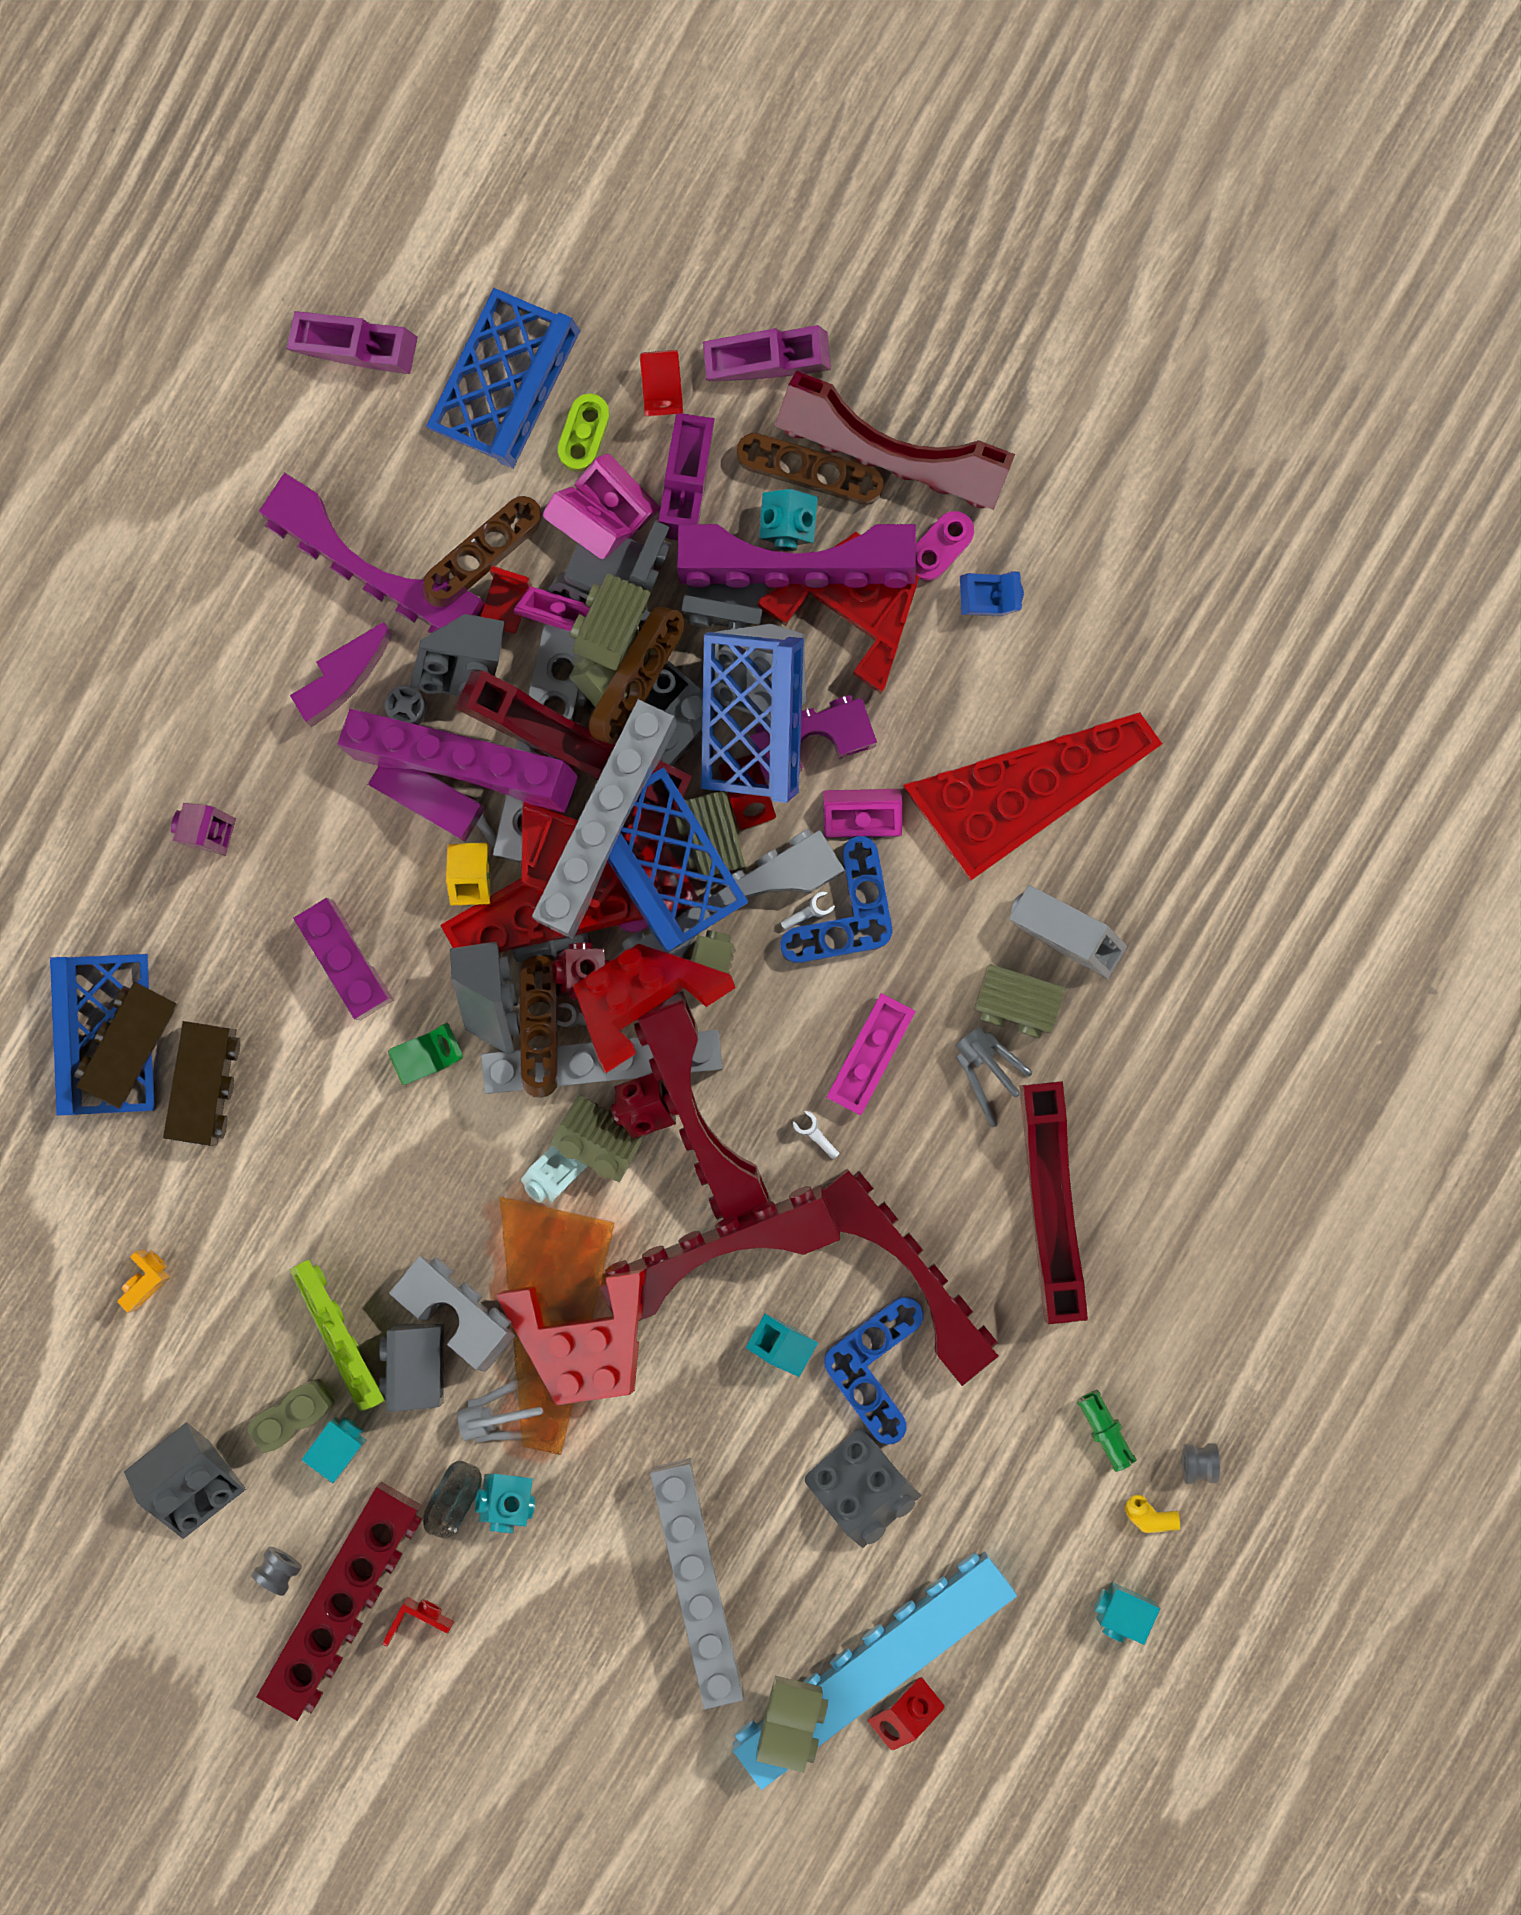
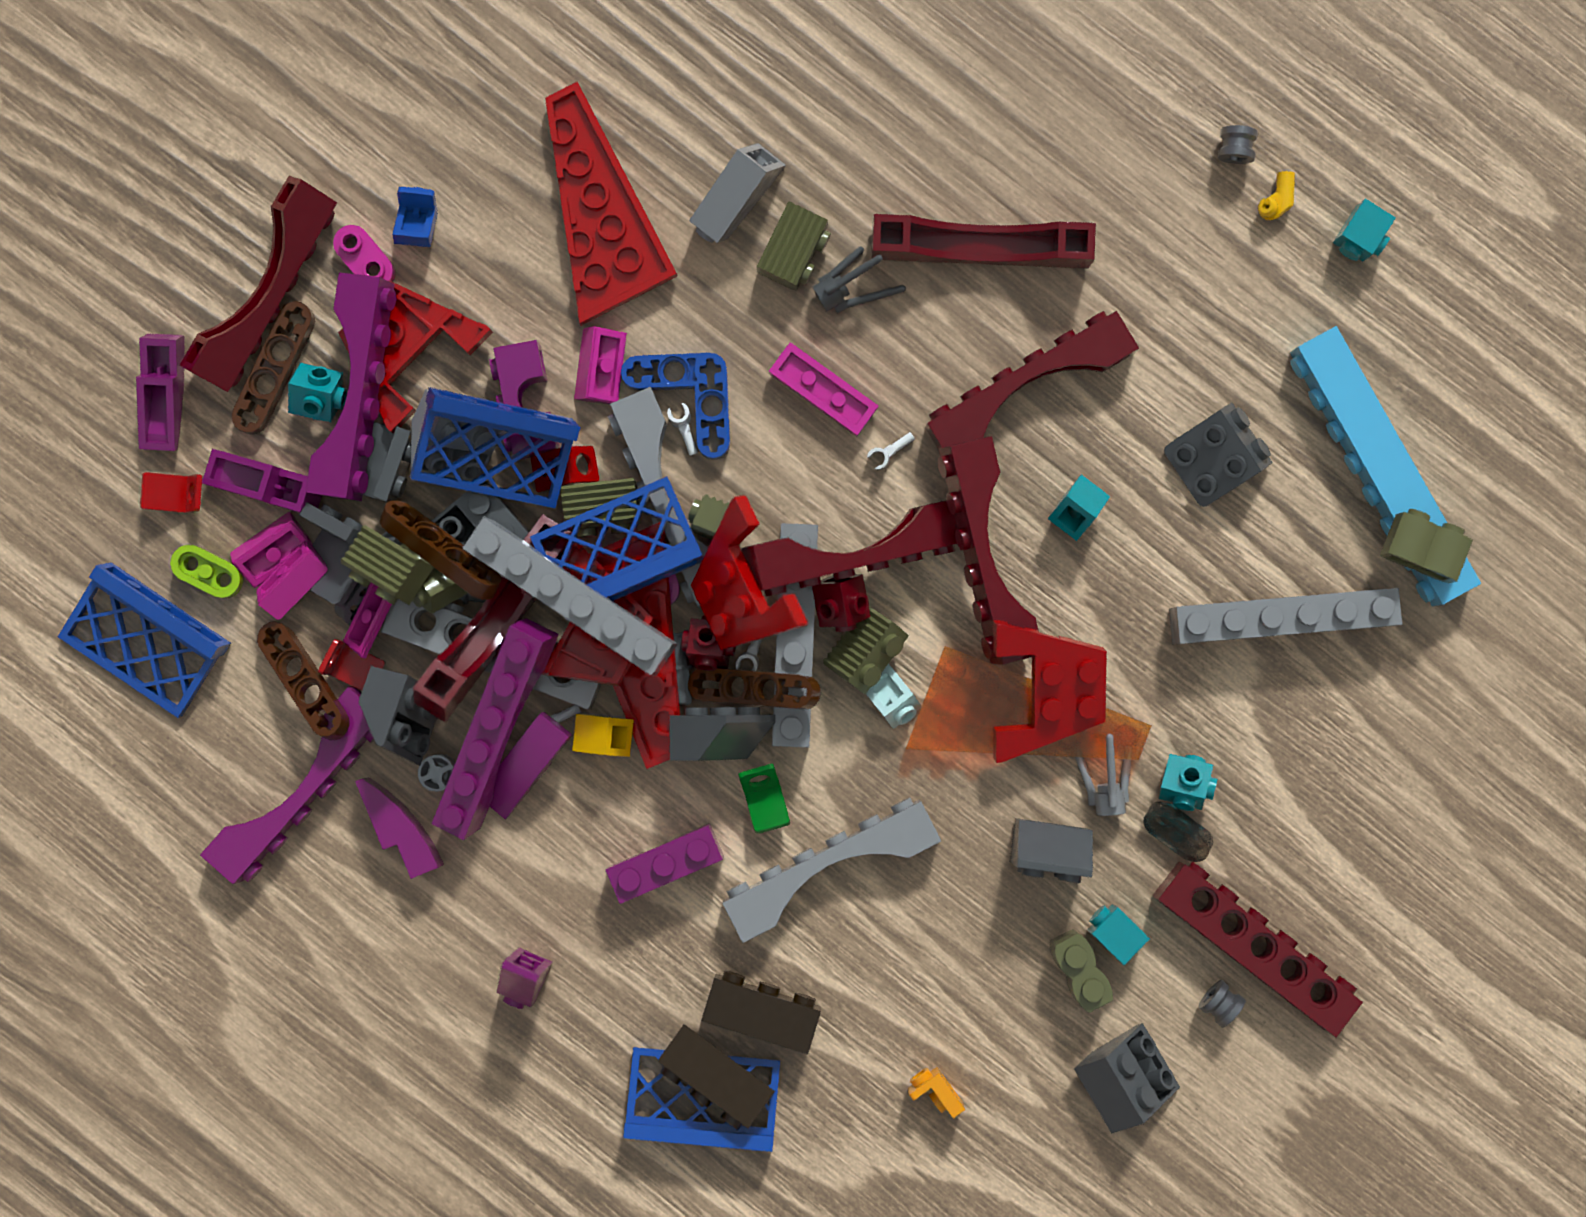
camera: 80 degrees left, 0 degrees up
(336, 1337) = (1018, 916): lime wing -> none
(352, 341) = (87, 775): magenta slope -> none
(408, 1202) = (899, 834): none -> light grey arch
(425, 1611) = (1276, 872): red bracket -> none
(480, 1333) = (1029, 782): light grey arch -> none
(864, 1356) = (1099, 436): blue beam -> none
(908, 1714) = (1429, 440): red bracket -> none
(1106, 1430) = (1196, 225): green pin -> none

